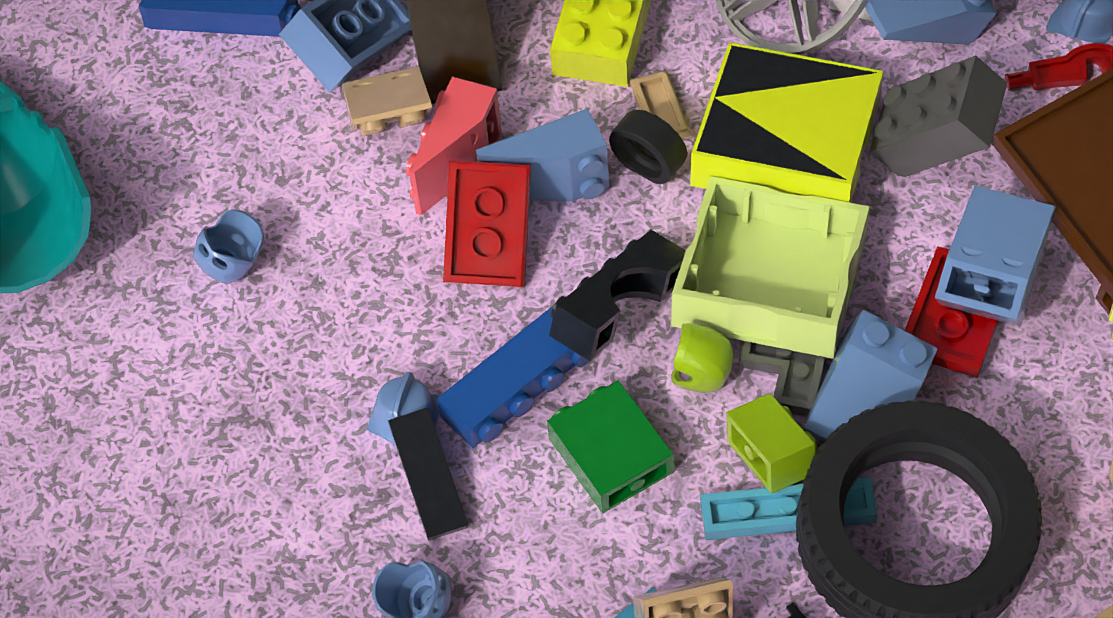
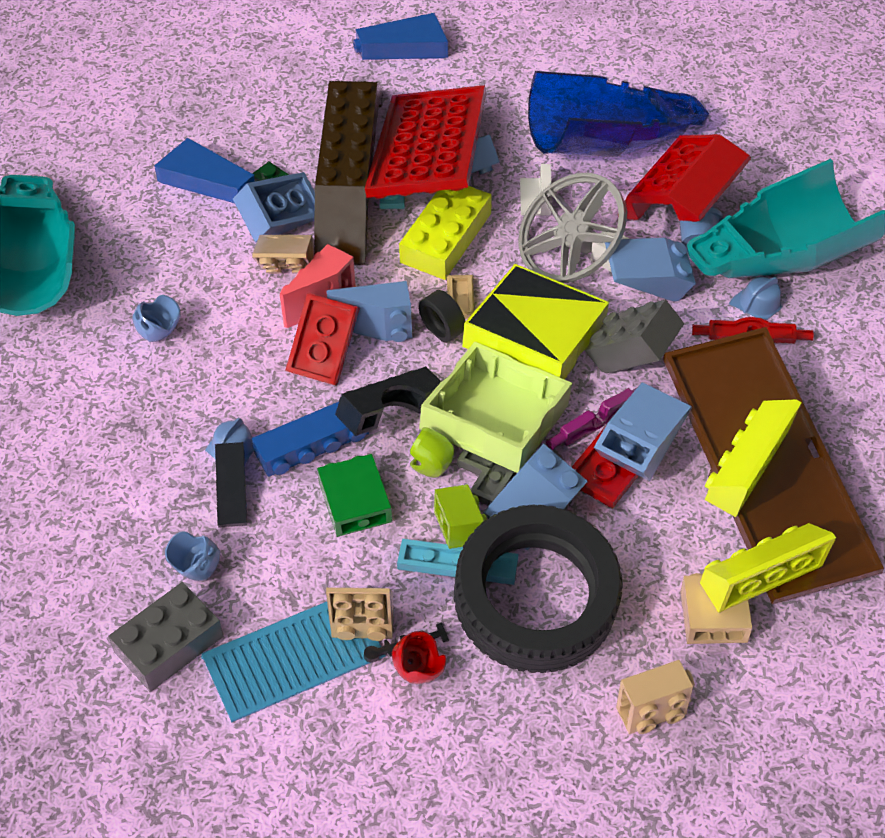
camera: 10 degrees right, 5 degrees down
(911, 255) = (589, 421): none -> magenta piece

